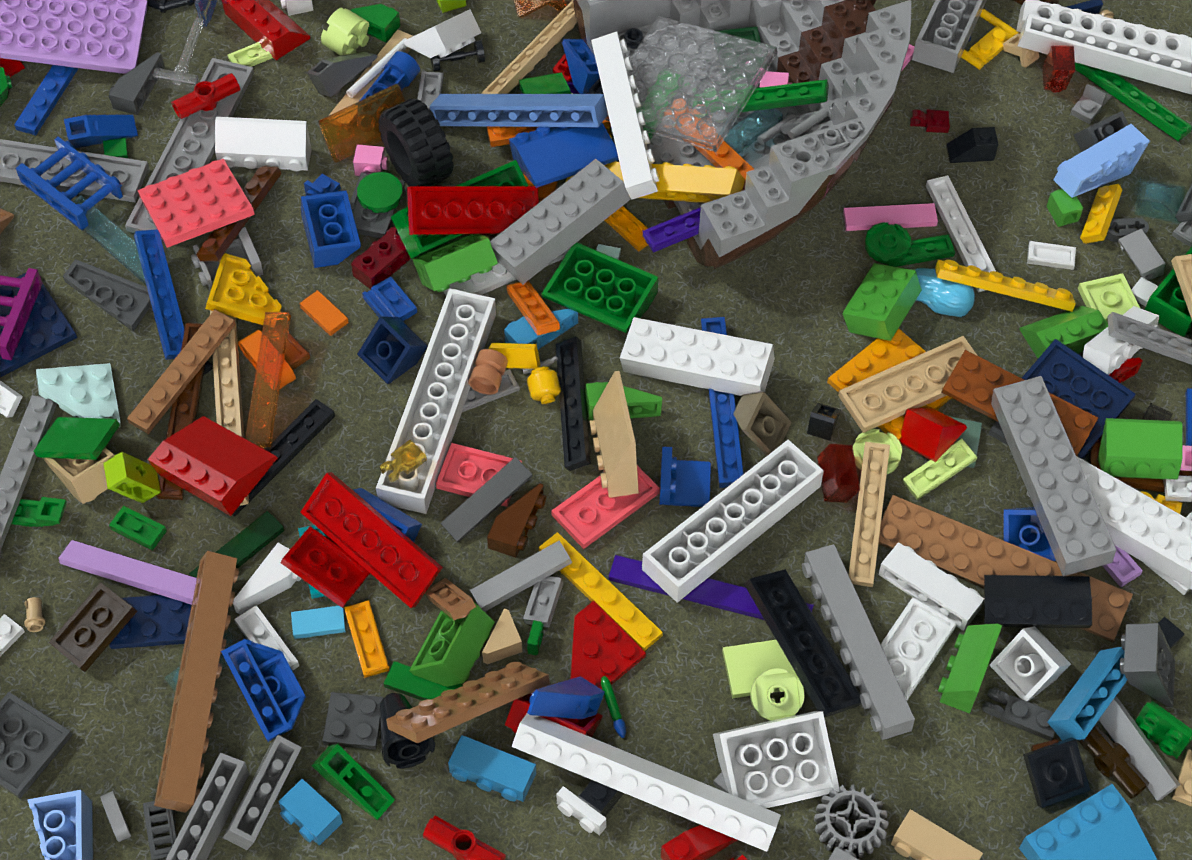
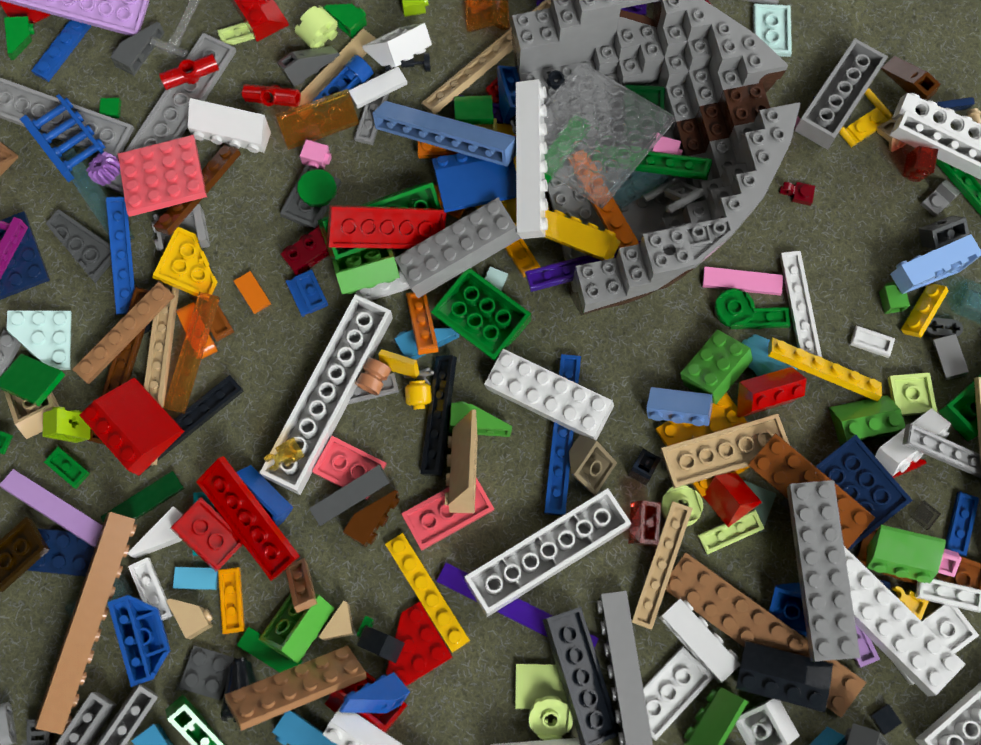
camera: 10 degrees right, 15 degrees up
(95, 129) = (98, 87): blue slope -> none
(124, 207) = (103, 168): none -> medium lavender gear
(293, 108) = (261, 94): none -> red piece
(321, 185) = (271, 174): blue bracket -> none
(321, 661) = (190, 617): none -> tan slope
(329, 227) = (269, 215): blue slope -> none
(375, 70) = (337, 66): white piece -> none
(391, 348) = (300, 337): dark blue slope -> none
(416, 143) = (352, 152): black tyre -> none
(431, 81) = (377, 87): none -> white tile
(521, 576) = (364, 570): light grey tile -> none
(543, 601) = (378, 594): light grey plate -> none
(558, 645) = (380, 644): none -> black slope
(619, 724) = (416, 701): green piece -> none
(684, 481) = (516, 504): blue bracket -> none
(849, 347) = (679, 406): none -> medium blue brick
(948, 315) = (770, 391): none -> red slope
(973, 146) = (829, 225): black slope -> none
(1143, 290) = (945, 391): white tile -> none

